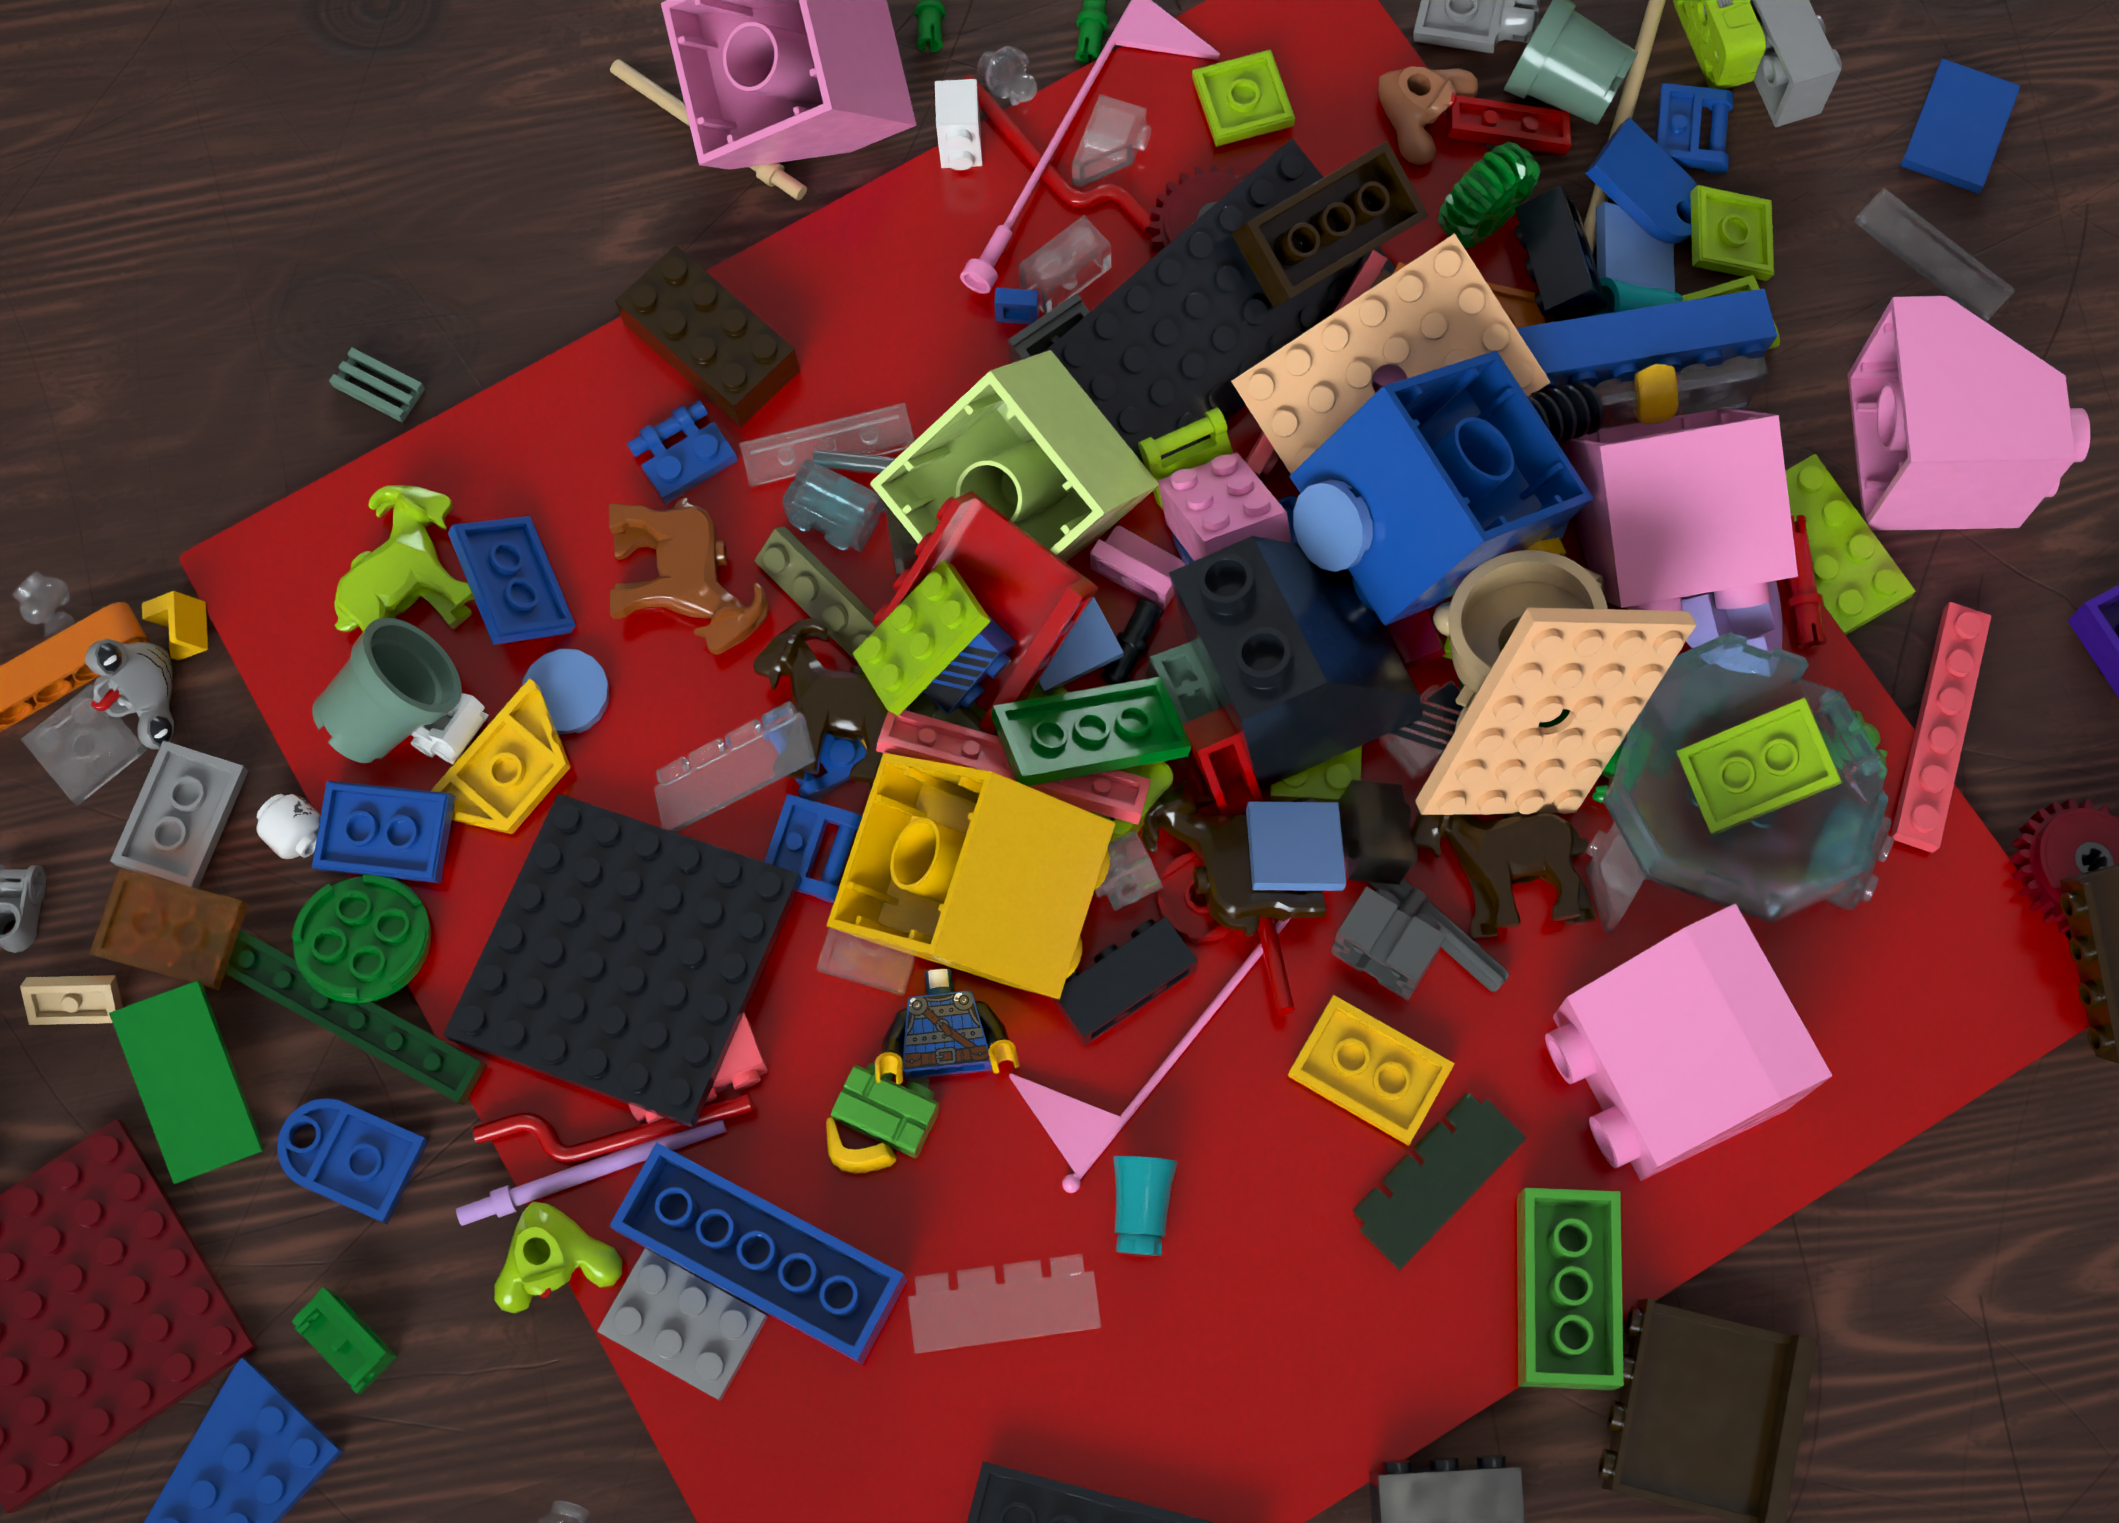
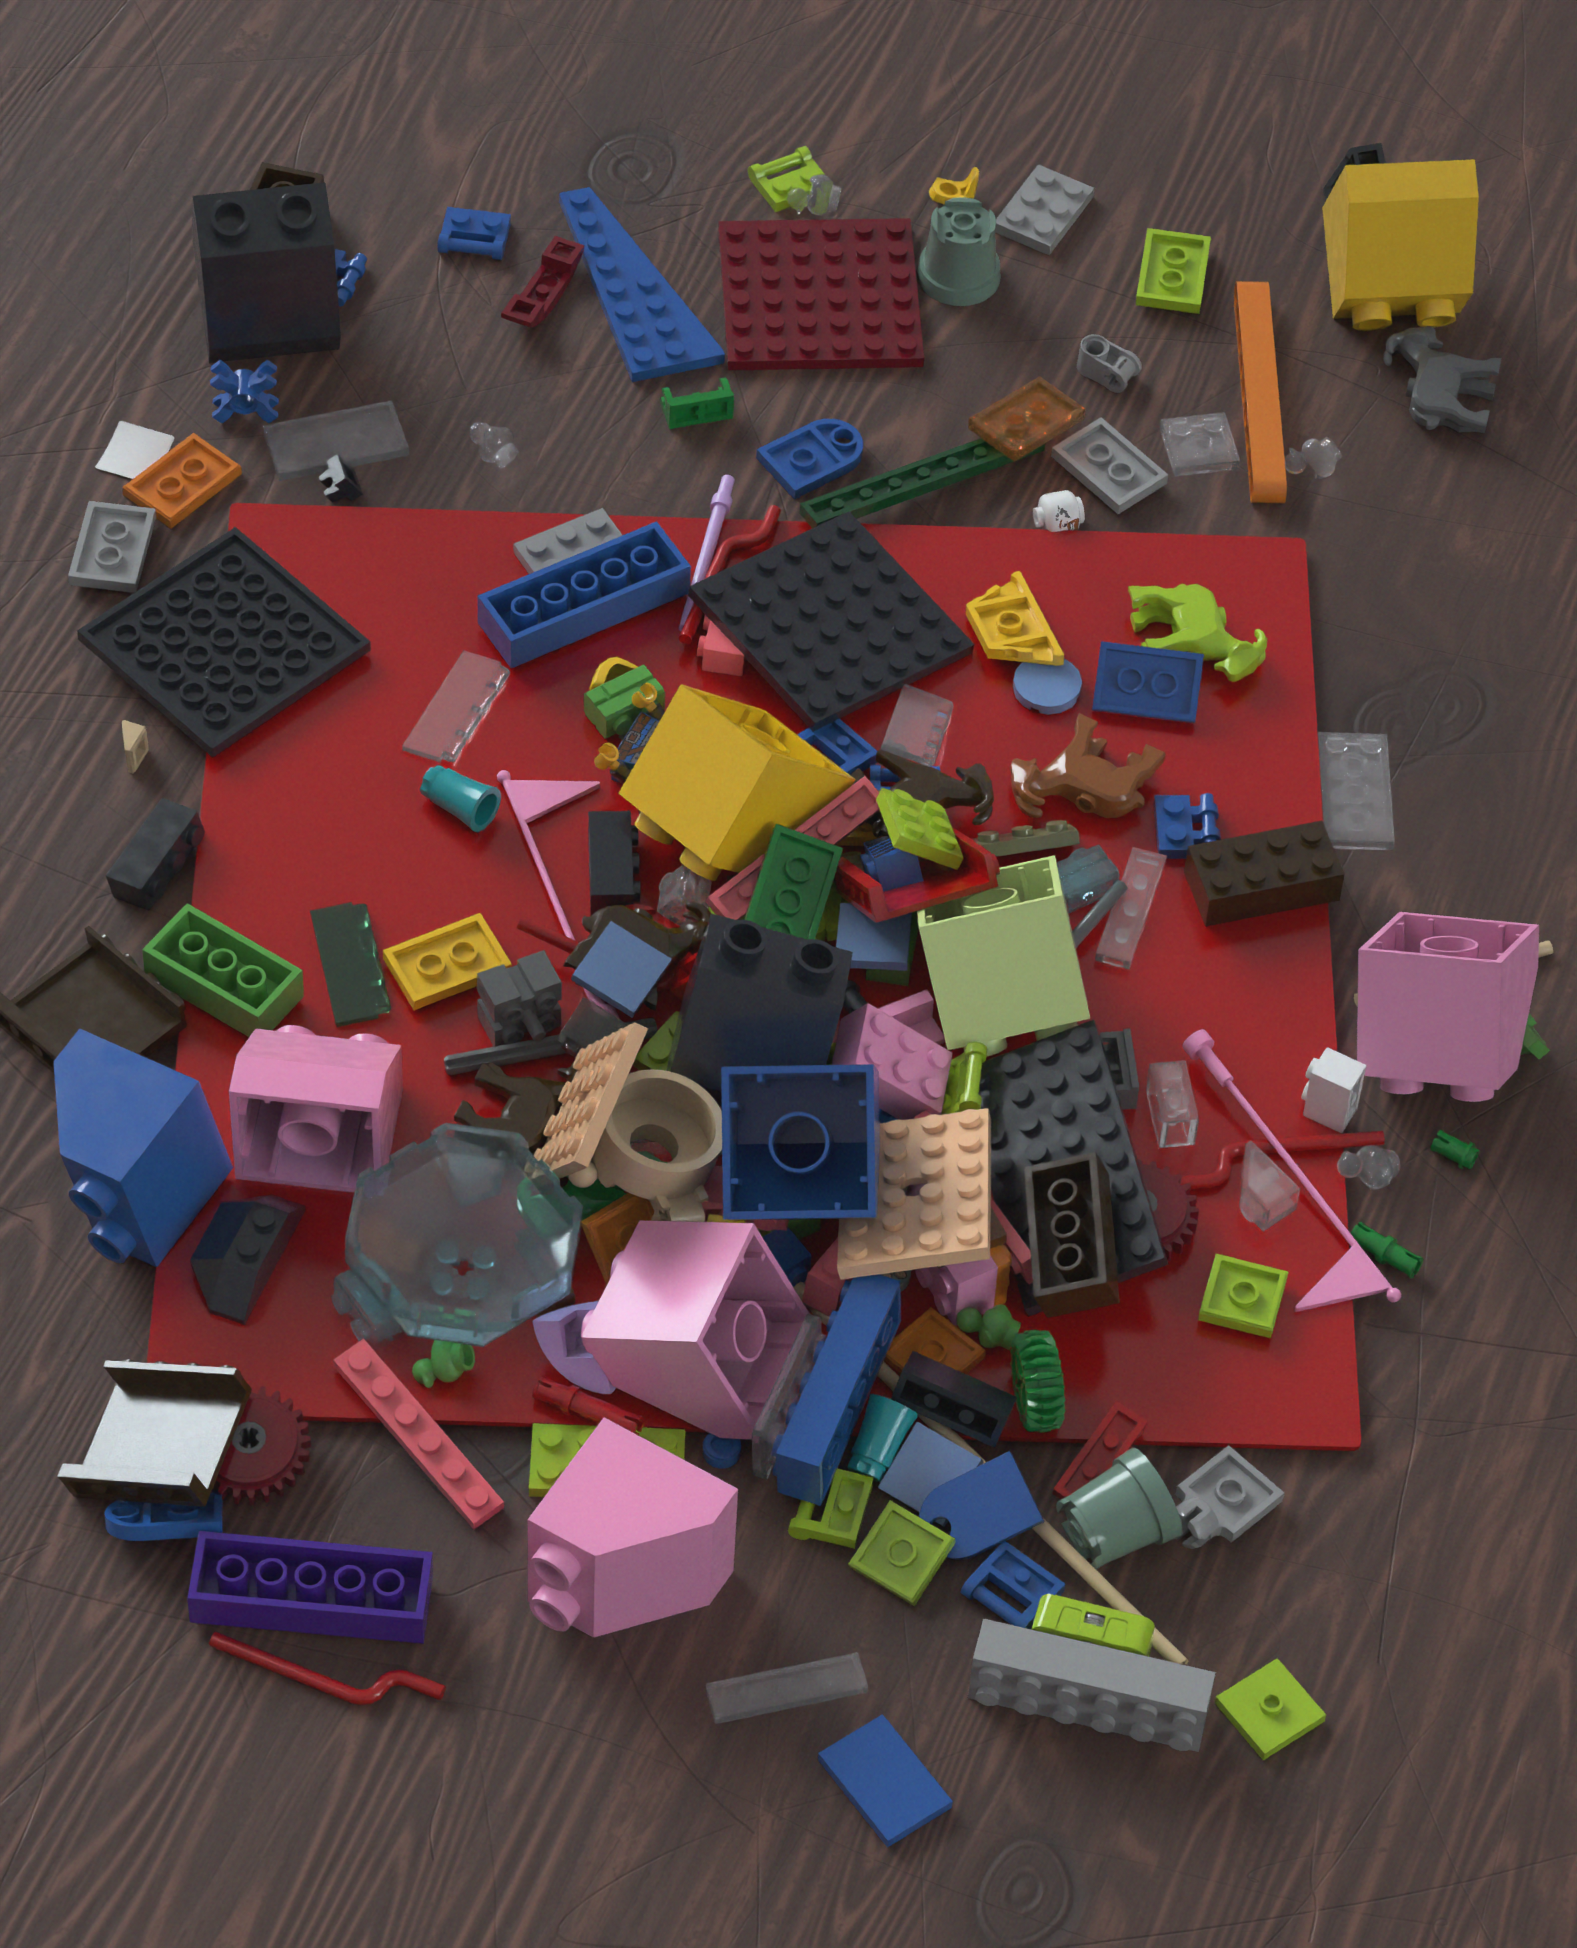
camera: 115 degrees right, 20 degrees down
(70, 999) = (1019, 366): tan plate -> none
(134, 681) = (1220, 476): light grey head -> none
(184, 619) = (1248, 515): yellow panel -> none
(187, 1081) = (918, 390): green tile -> none
(349, 369) = (1363, 694): sand green tile -> none
(361, 938) = (949, 508): green tile -> none
(383, 831) = (1015, 548): blue tile -> none
(386, 690) = (1125, 575): sand green piece -> none
(451, 732) = (1066, 606): white cylinder -> none
(515, 330) = (1356, 790): none -> clear plate
(545, 1254) = (668, 503): lime head -> none
(1016, 305) = (1164, 1052): blue tile -> none
(1332, 525) = (818, 1059): medium blue tile -> none
(1418, 98) = (1160, 1399): nougat head -> none
(1569, 410) = (813, 1276): black piece -> none
(1656, 394) = (786, 1348): yellow hair -> none
(1759, 766) = (469, 1261): lime plate -> none
(1883, 1028) = (242, 1252): none -> black wedge
(1903, 1199) = (134, 1147): none -> blue slope

